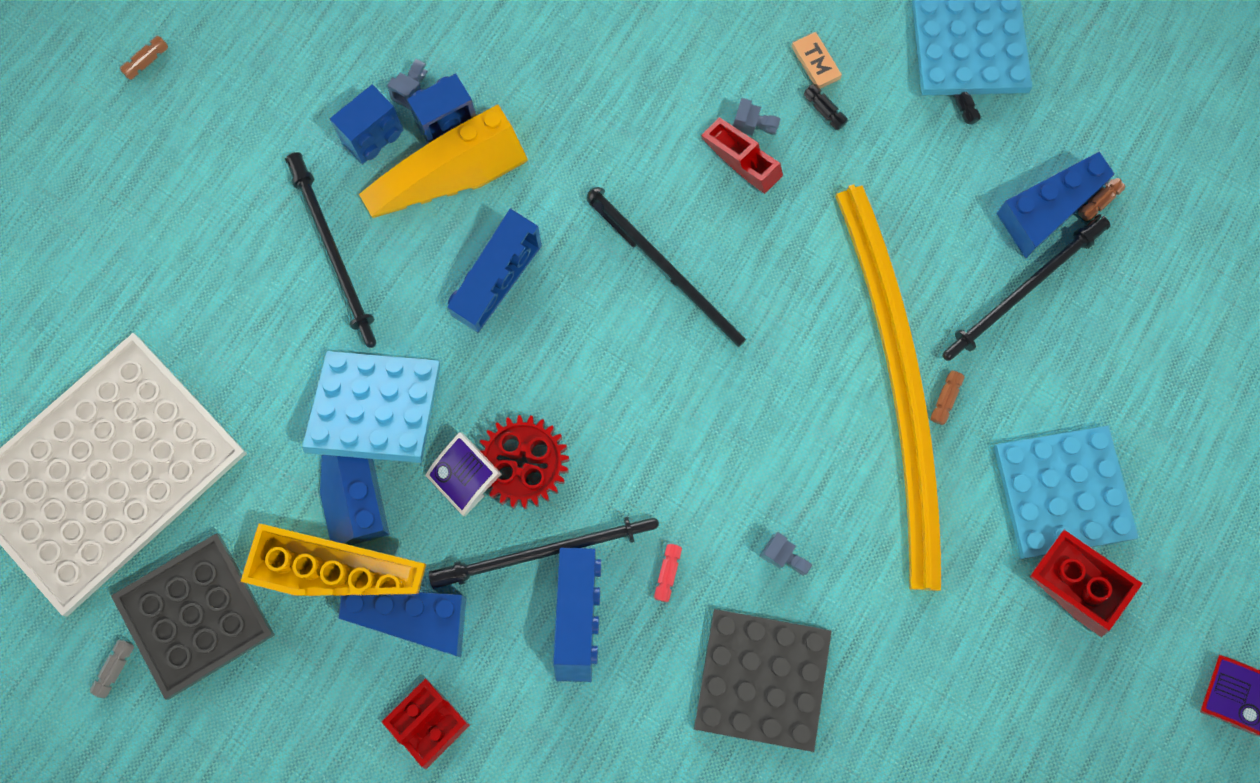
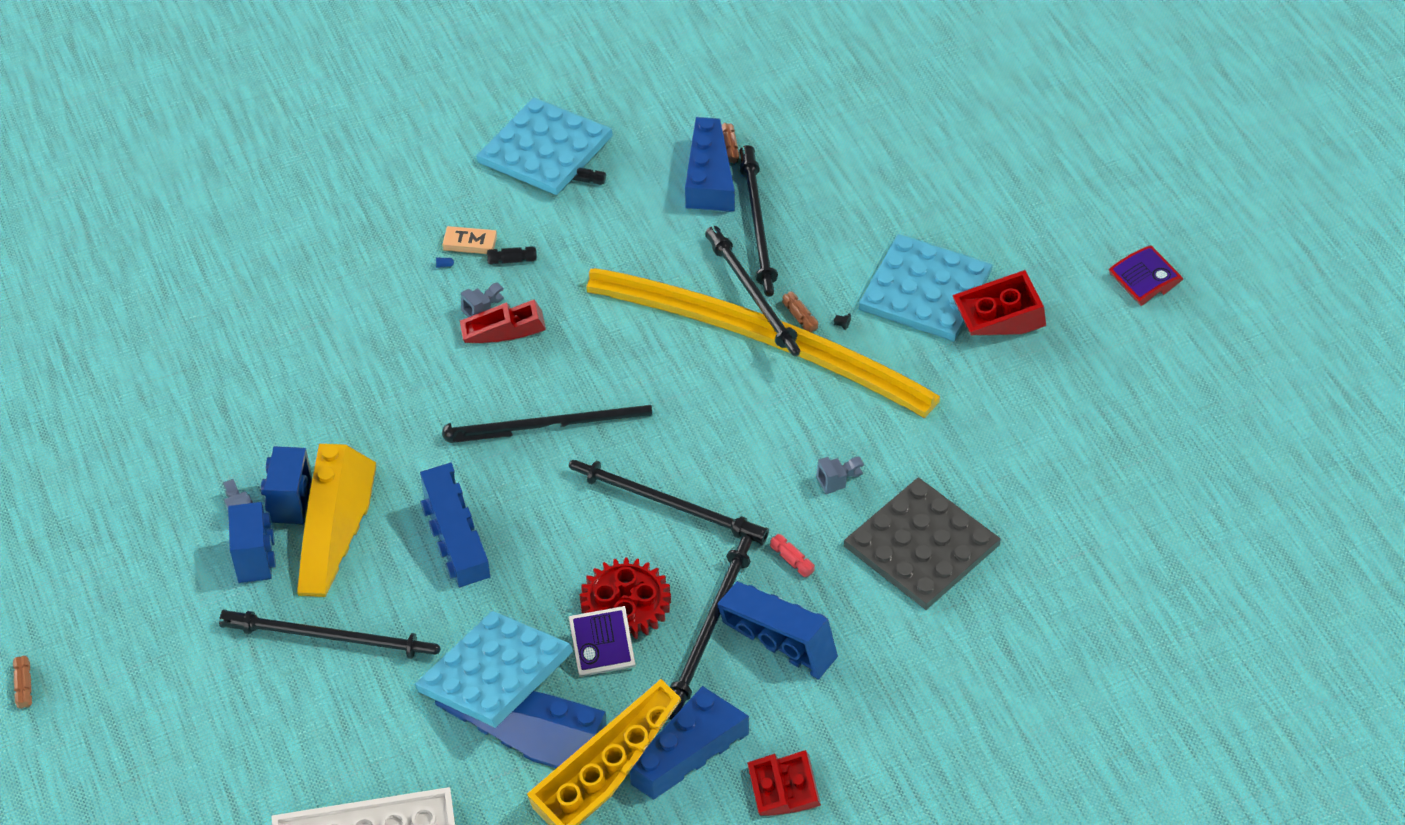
camera: 55 degrees left, 25 degrees down
(664, 505) = (739, 526): none -> black bar
(777, 57) = (444, 262): none -> blue piece
(967, 443) = (843, 321): none -> black piece
(969, 279) = (722, 247): none -> black bar

